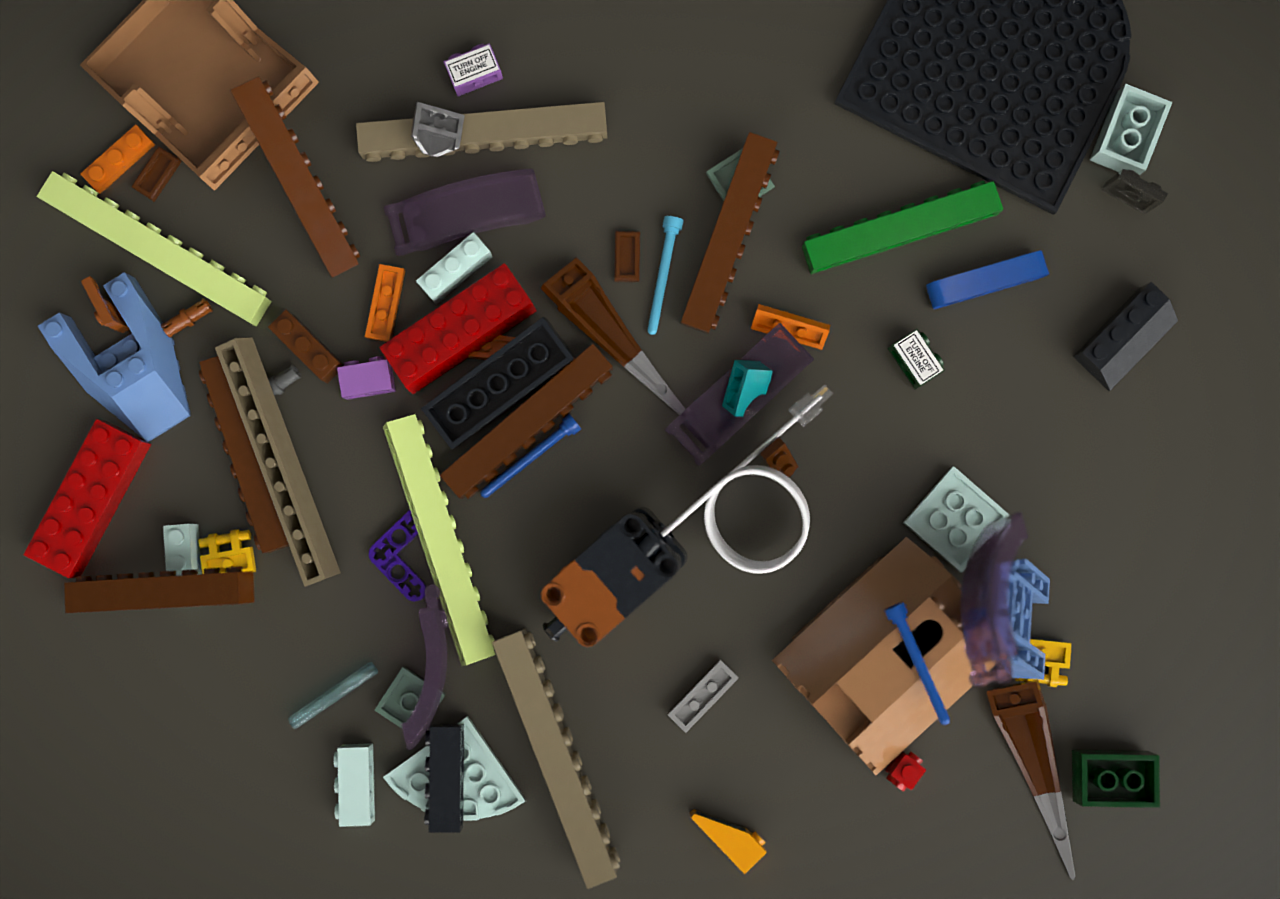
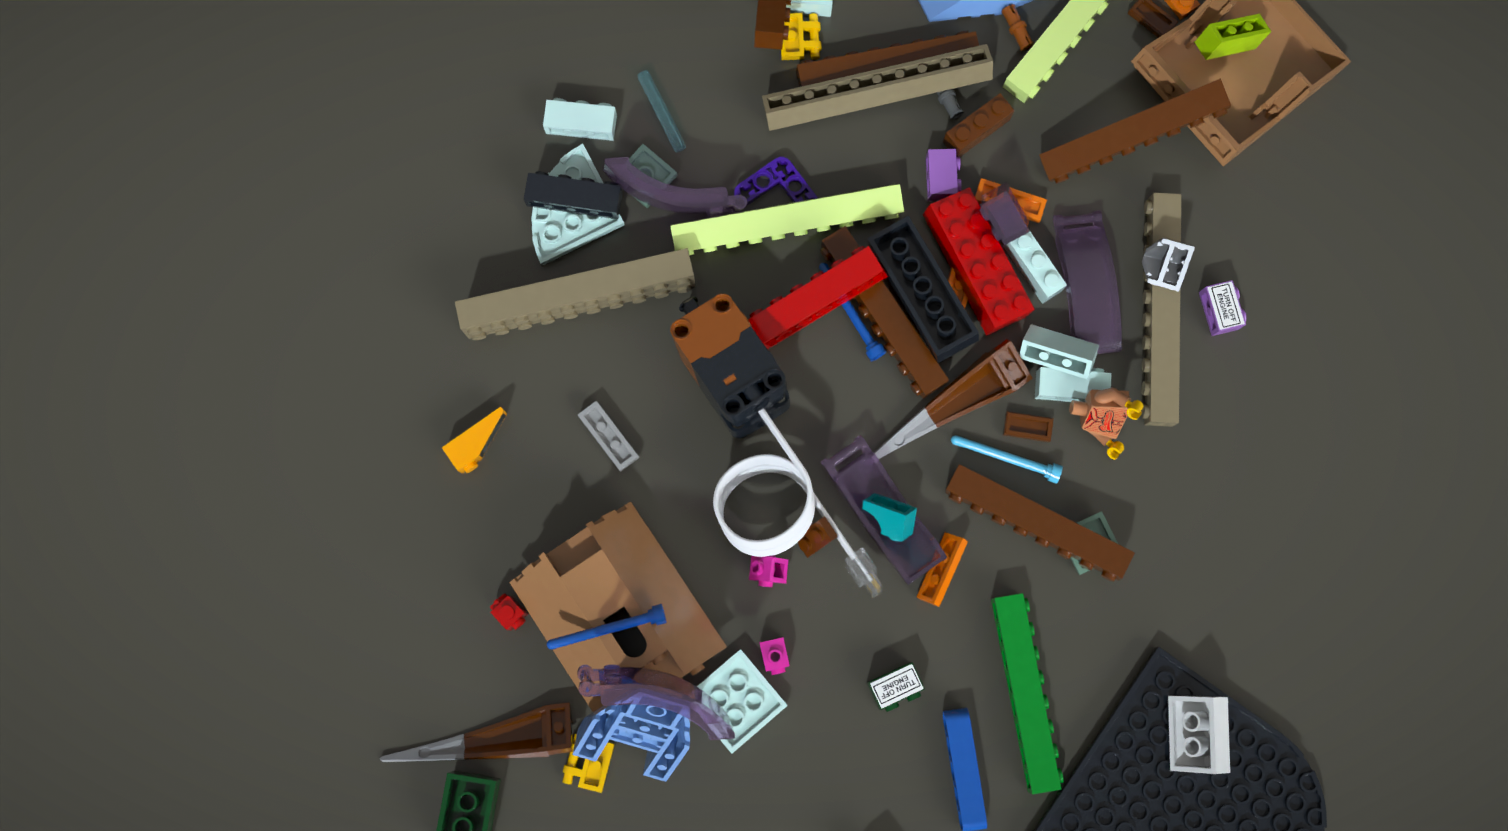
camera: 100 degrees right, 5 degrees down
(172, 85) = (1232, 36): none -> lime brick
(405, 305) = (1004, 213): none -> clear purple brick
(527, 494) = (818, 297): none -> red brick
(546, 232) = (1059, 351): none -> light aqua brick
(577, 215) = (1061, 386): none -> light aqua brick
(606, 177) = (1105, 414): none -> nougat torso
(823, 508) = (768, 570): none -> dark pink brick
(905, 486) = (774, 655): none -> dark pink brick
(918, 51) = (1199, 734): none -> white slope

